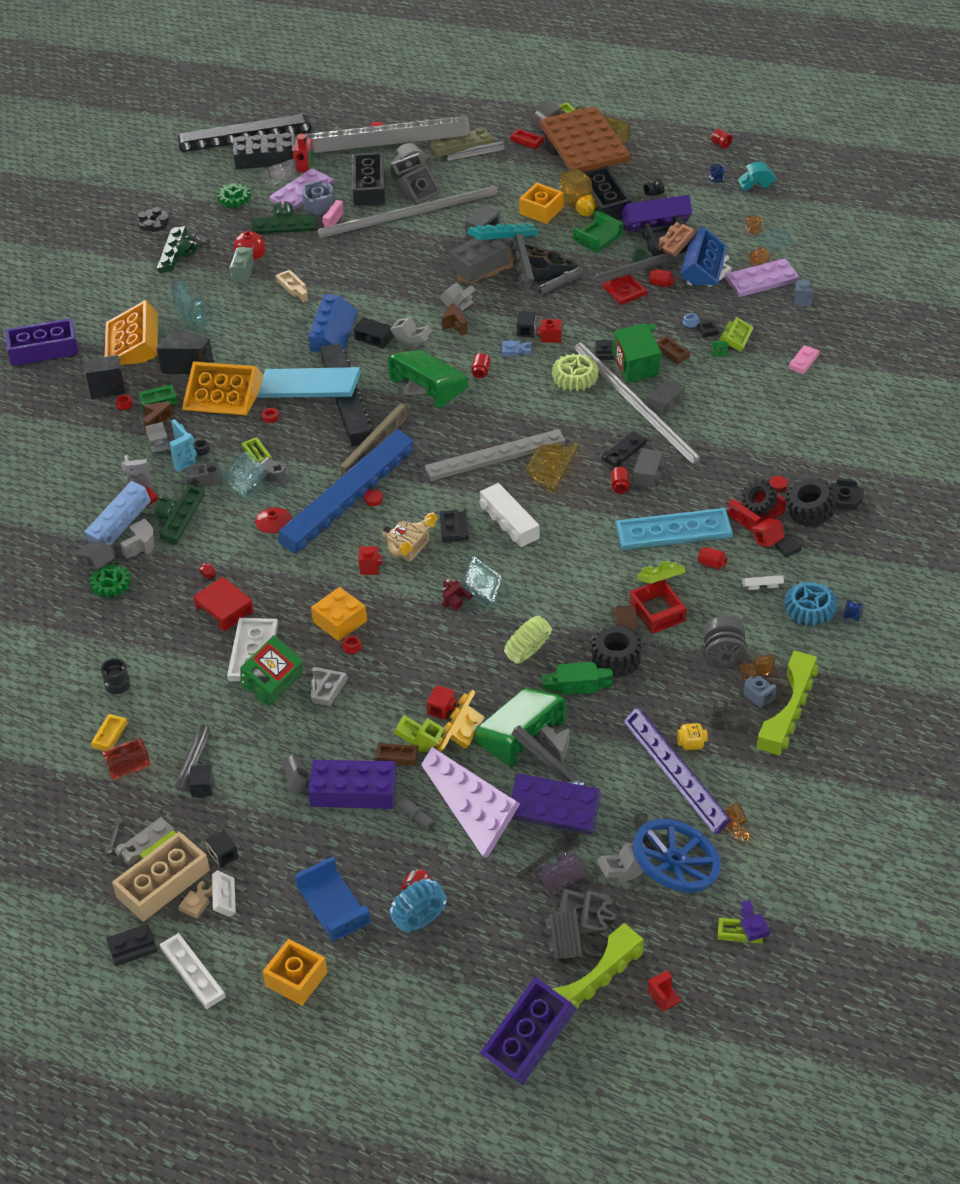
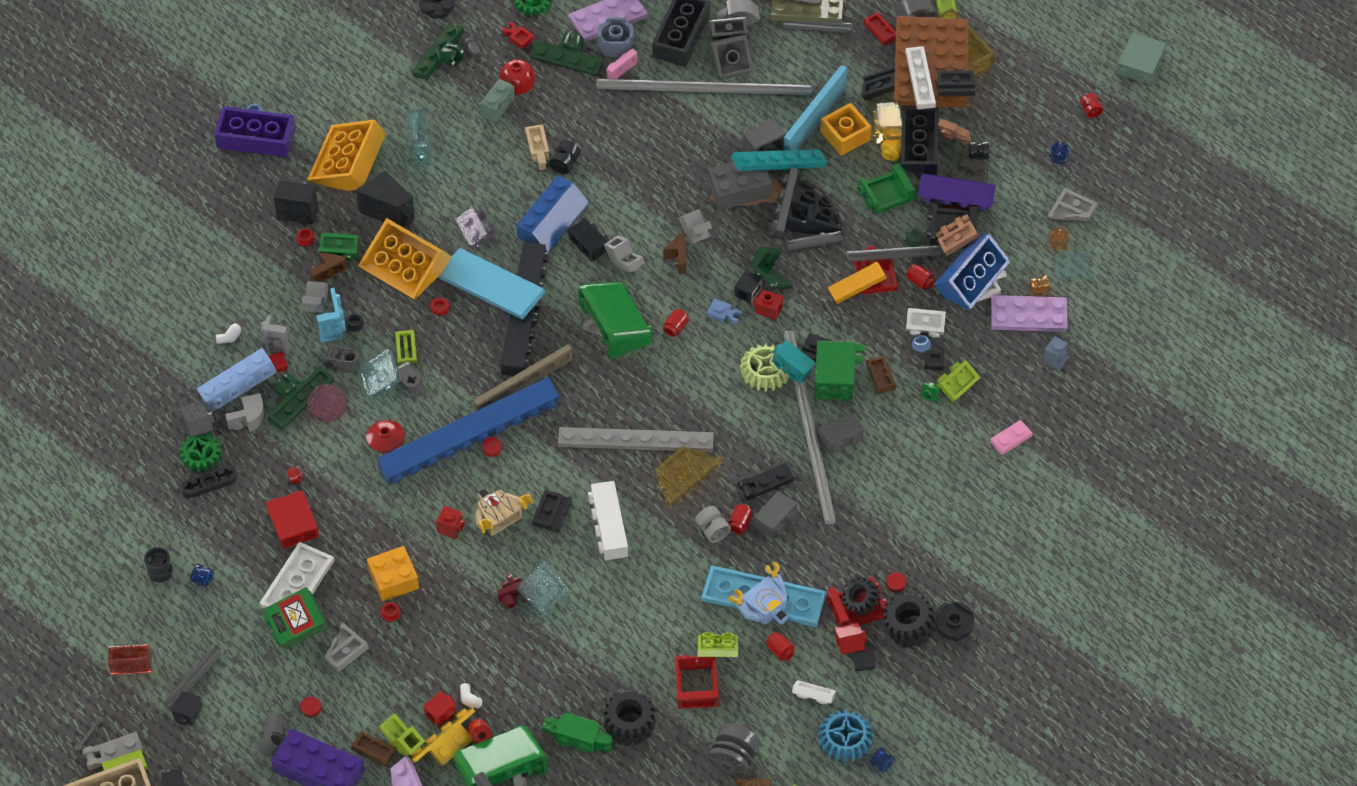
camera: 20 degrees right, 10 degrees up
(93, 490) = (230, 336): none -> white arm
(109, 732) = (129, 623): yellow plate -> none
(143, 591) = (209, 475): none -> black beam
(160, 672) = (201, 575): none -> clear blue wheel
(208, 510) = (327, 403): none -> clear pink tile
(236, 221) = (519, 37): none -> red plate
(270, 353) = (475, 227): none -> clear purple bracket
(318, 742) = (310, 707): none -> red tile
(320, 284) = (564, 157): none -> black wheel
(461, 687) = (469, 699): none -> white arm
(488, 705) = (479, 731): none -> red brick
(512, 194) = (816, 110): none -> medium azure tile
(527, 639) = (549, 674): yellowish green gear -> none
(530, 302) = (763, 264): none -> dark green bracket
(549, 168) = (878, 83): none -> black plate
(585, 146) = (920, 77): none -> white plate
(599, 356) = (793, 361): none -> teal brick
(601, 490) = (712, 524): none -> light grey wheel
(613, 296) = (857, 282): none -> light orange tile
(615, 142) = (956, 83): none -> black plate
(624, 616) = (657, 682): reddish brown slope -> none
(630, 179) = (951, 131): none -> nougat plate
(680, 526) = (765, 600): none -> light blue torso
(685, 304) = (925, 321): none -> white bracket
(739, 101) = (1141, 58): none -> sand green brick
(750, 202) = (1072, 207): none -> light grey wing
(759, 173) = (1098, 172): teal brick -> none

